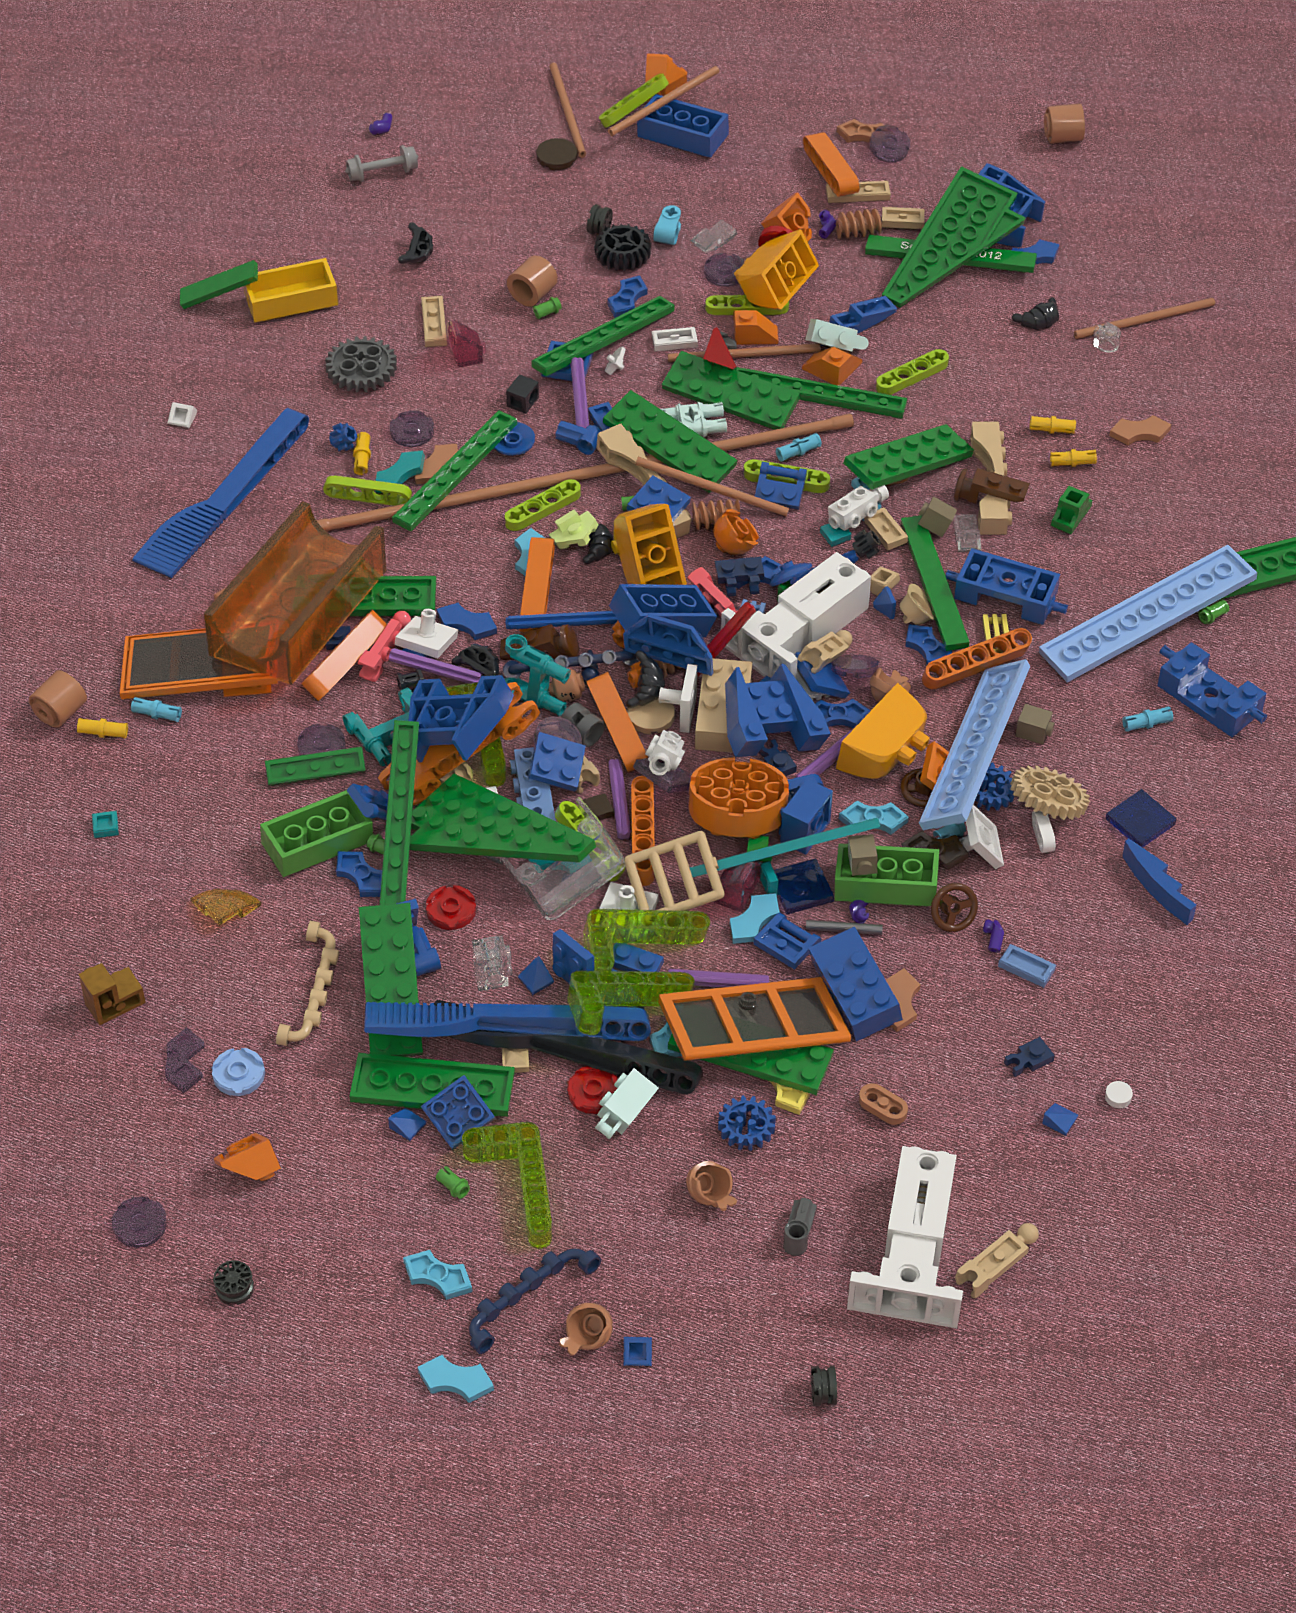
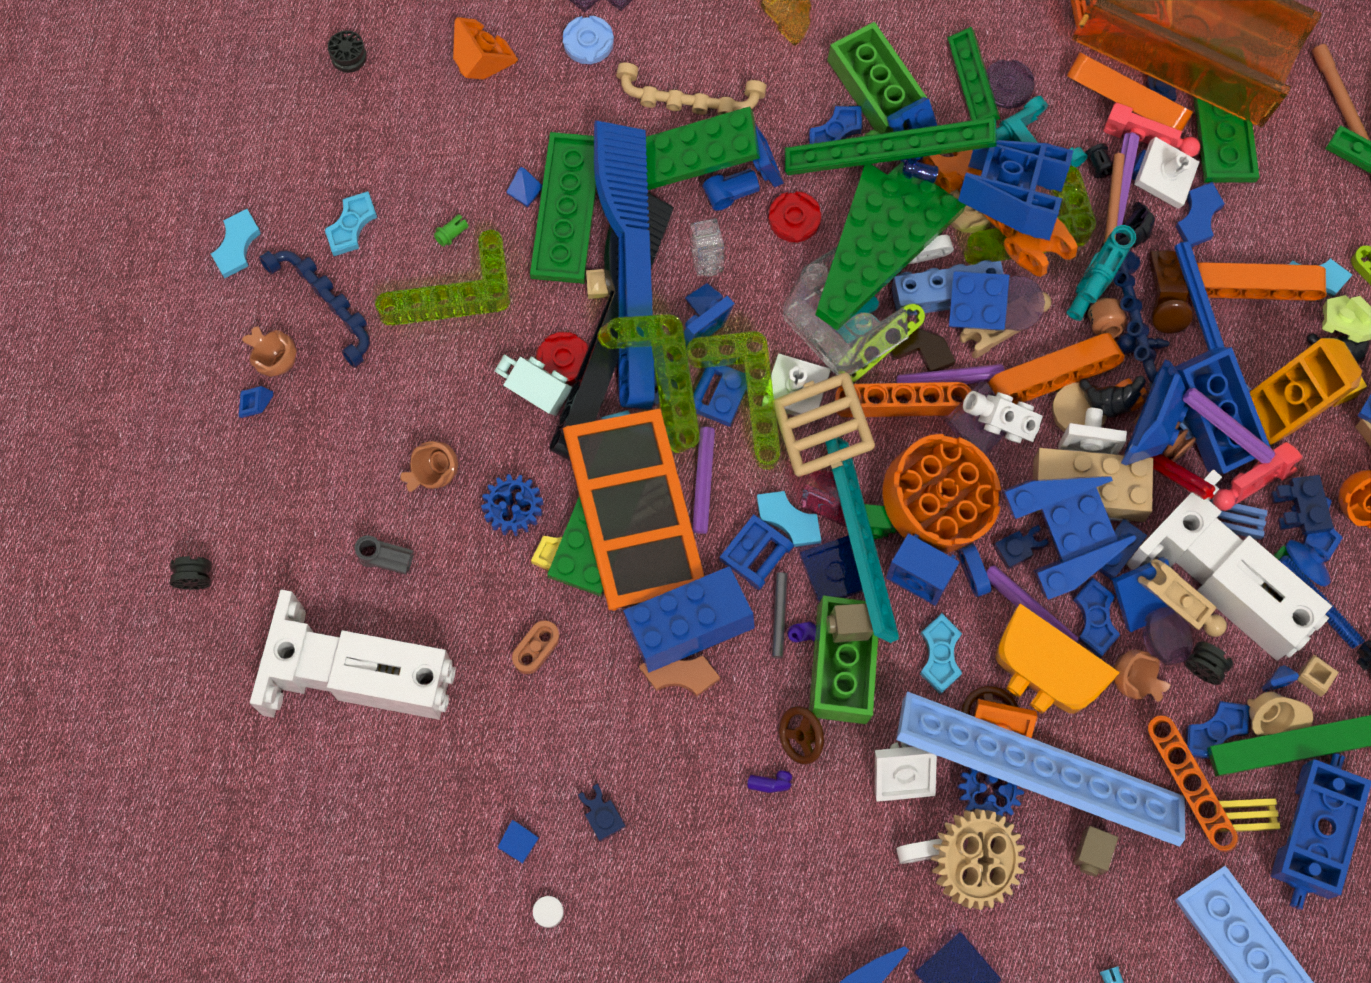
camera: 90 degrees right, 20 degrees up
(421, 800) = (919, 170): none -> clear blue pin
(457, 1110) = (527, 228): blue tile -> none
(466, 671) = (1115, 192): none -> nougat piece
(588, 724) = (1049, 332): dark grey wheel -> none
(683, 599) = (1228, 425): none -> medium lavender axle
(768, 878) = (835, 532): teal tile -> none
(877, 642) = (1208, 663): none -> pearl dark grey wheel
(950, 849) = (884, 729): dark brown tile -> none
(997, 1258) = (337, 761): tan plate -> none
(1027, 965) = (730, 819): medium blue tile -> none

